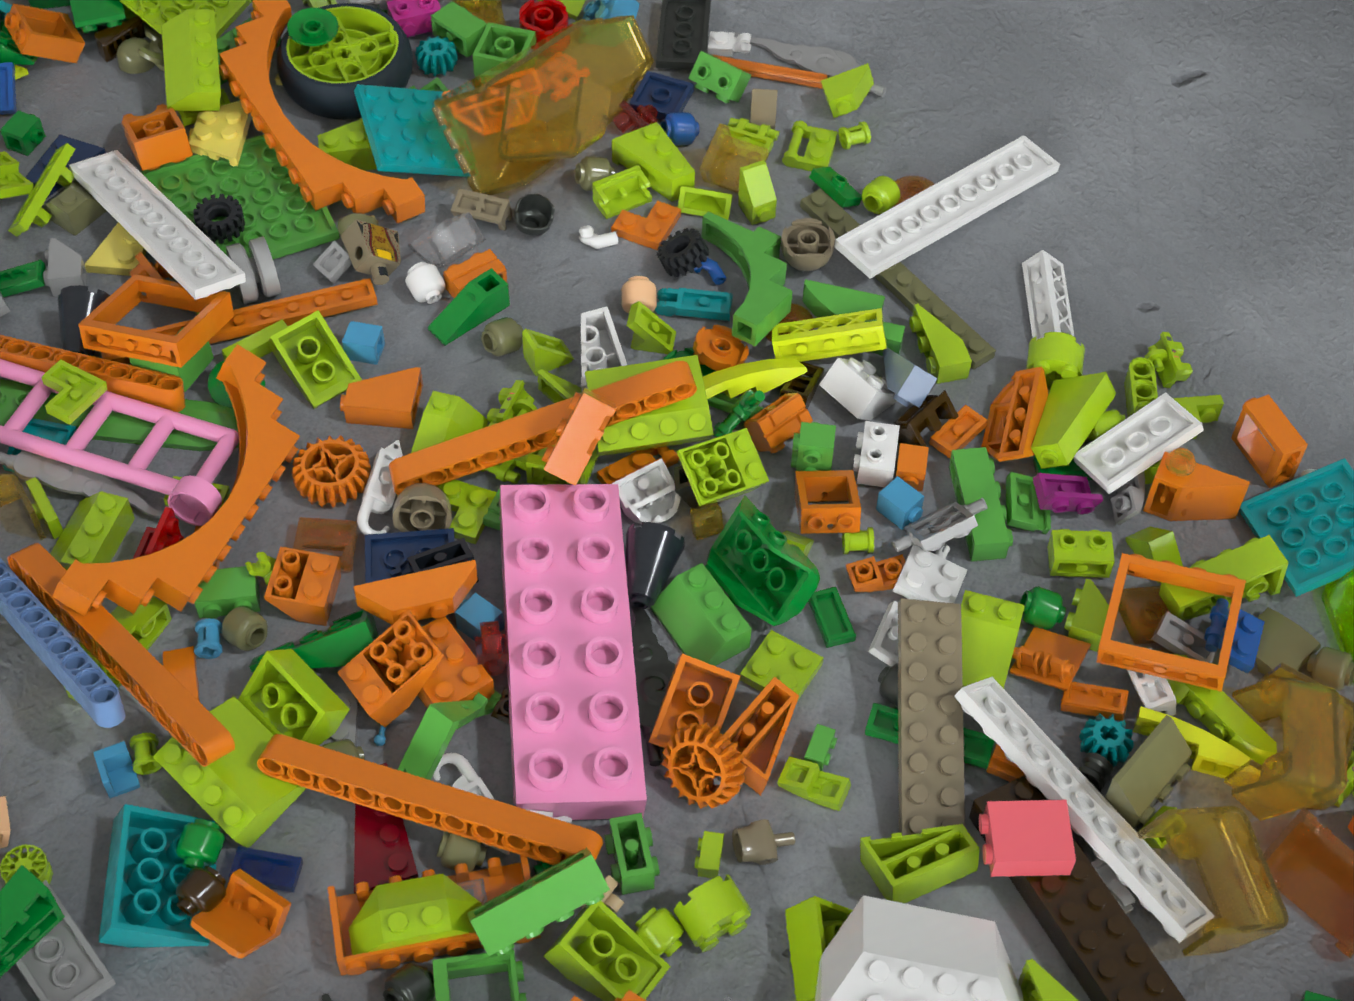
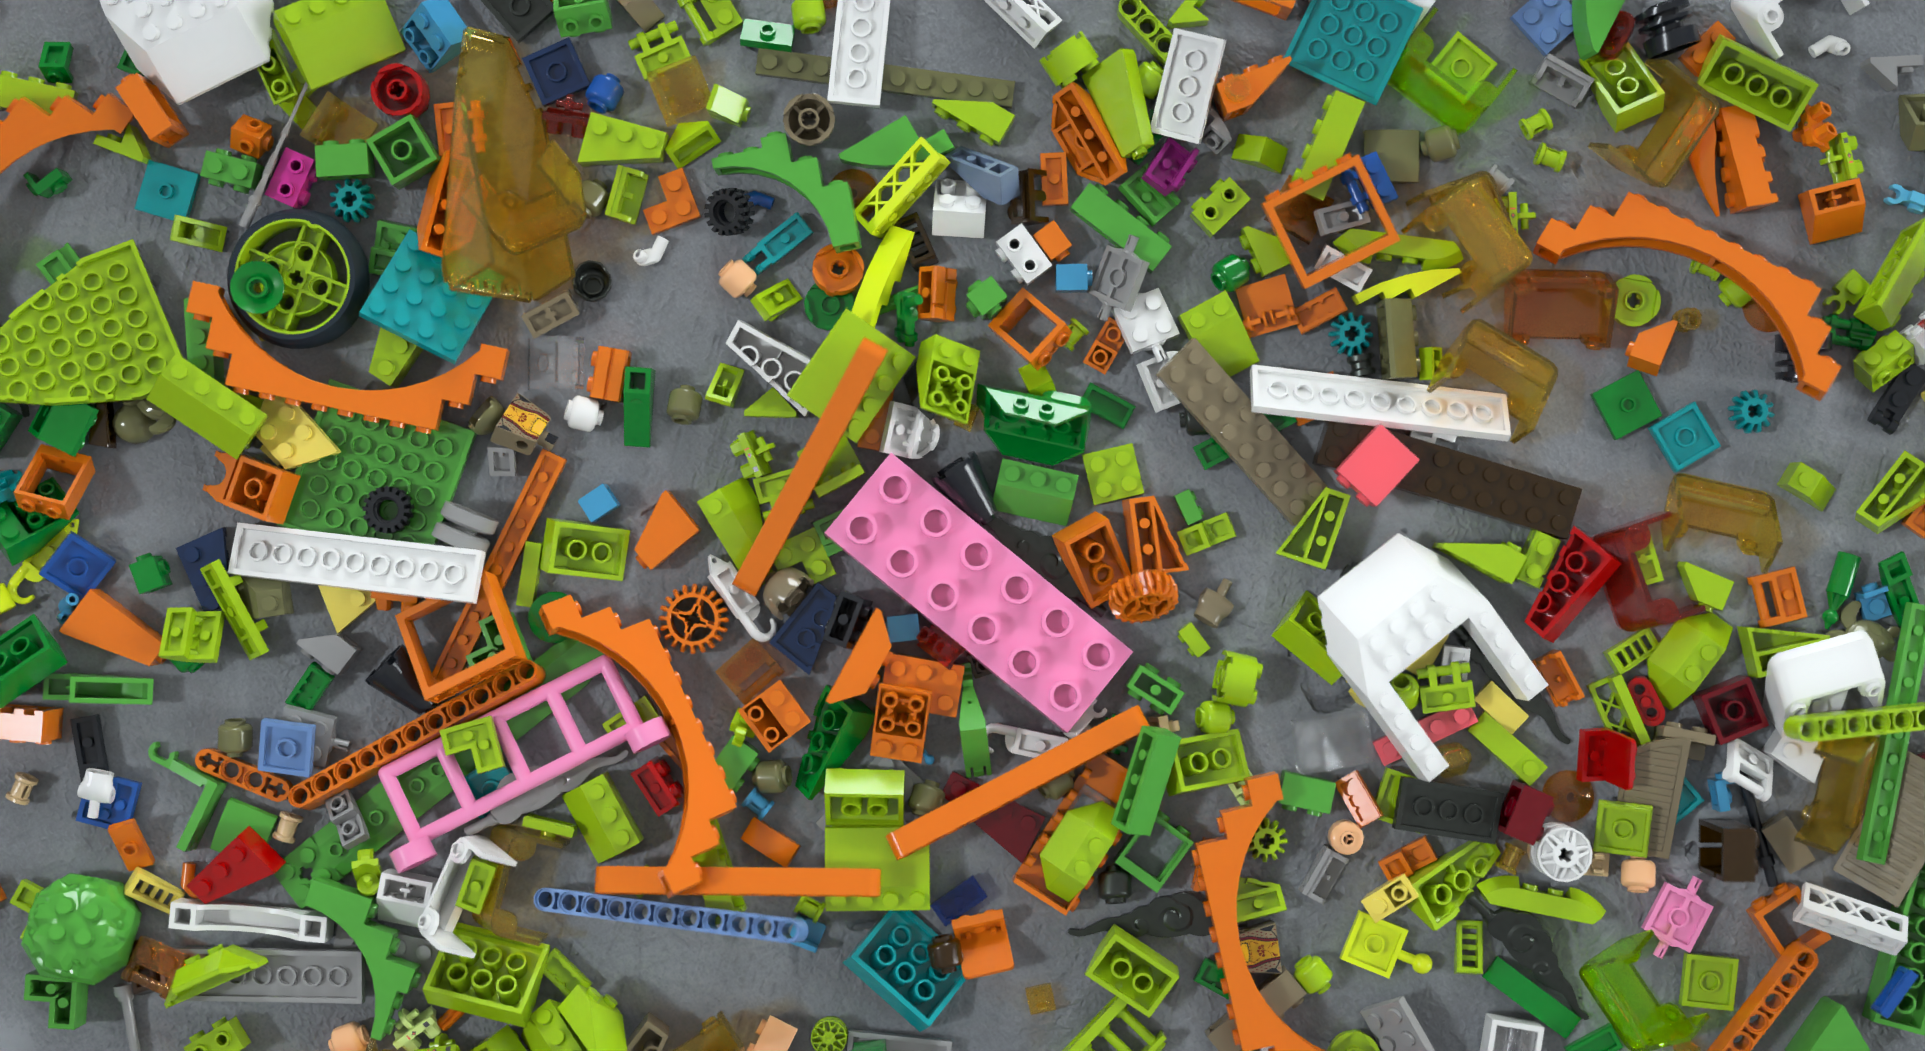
camera: 45 degrees left, 35 degrees up
(200, 844) = (913, 929): green head -> none
(578, 435) = (850, 458): wedge -> none

